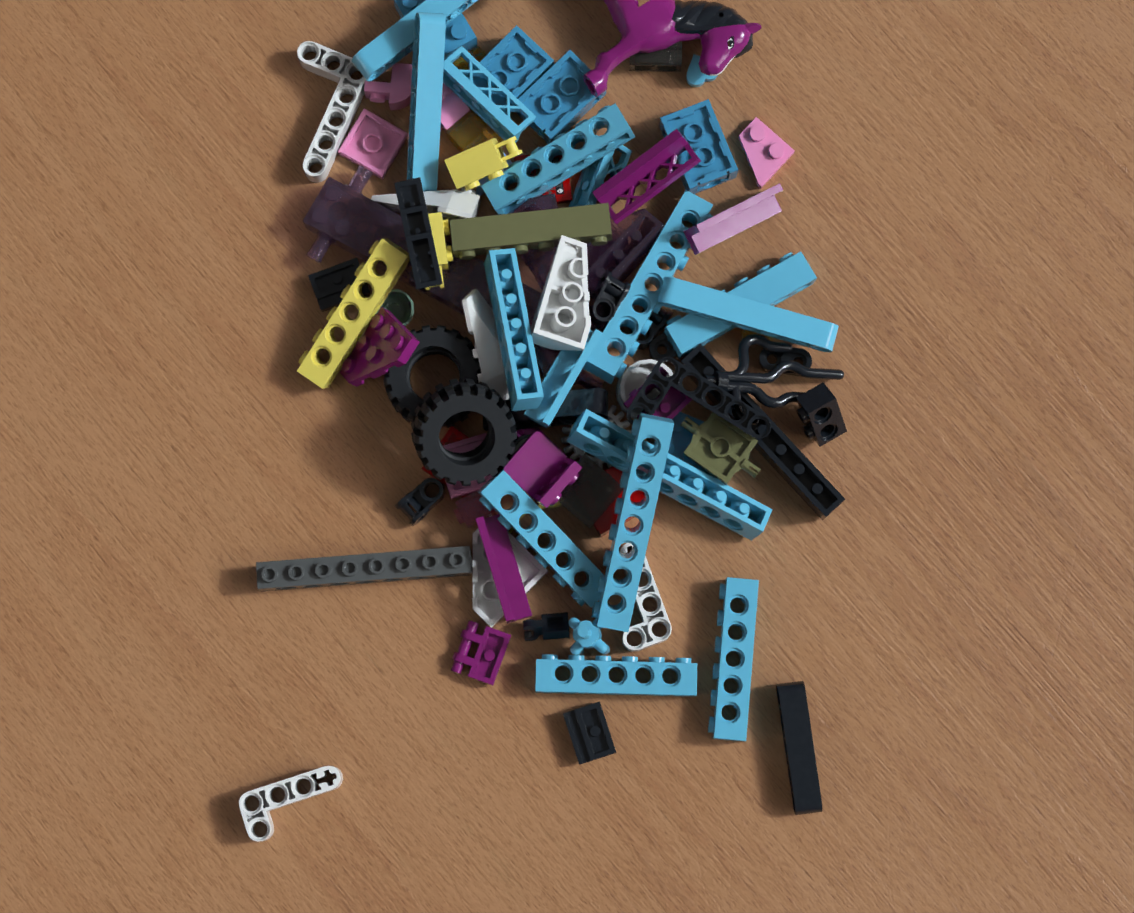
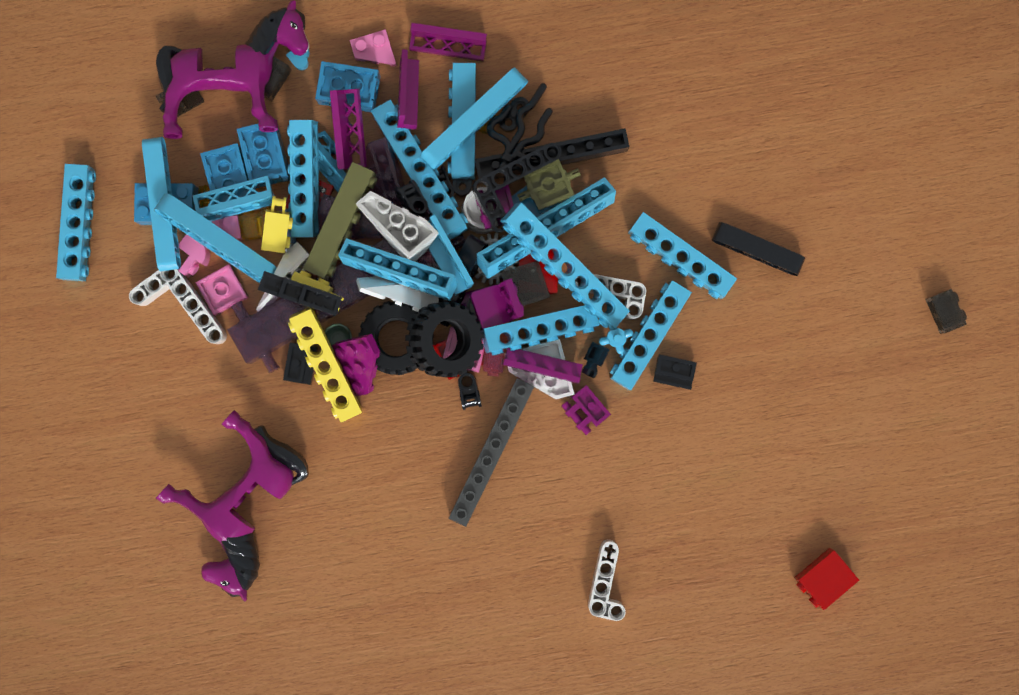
camera: 60 degrees left, 5 degrees up
(194, 324) = (269, 467): none -> magenta animal
(820, 415) = (563, 112): black brick -> none
(833, 228) = (451, 35): none -> magenta fence

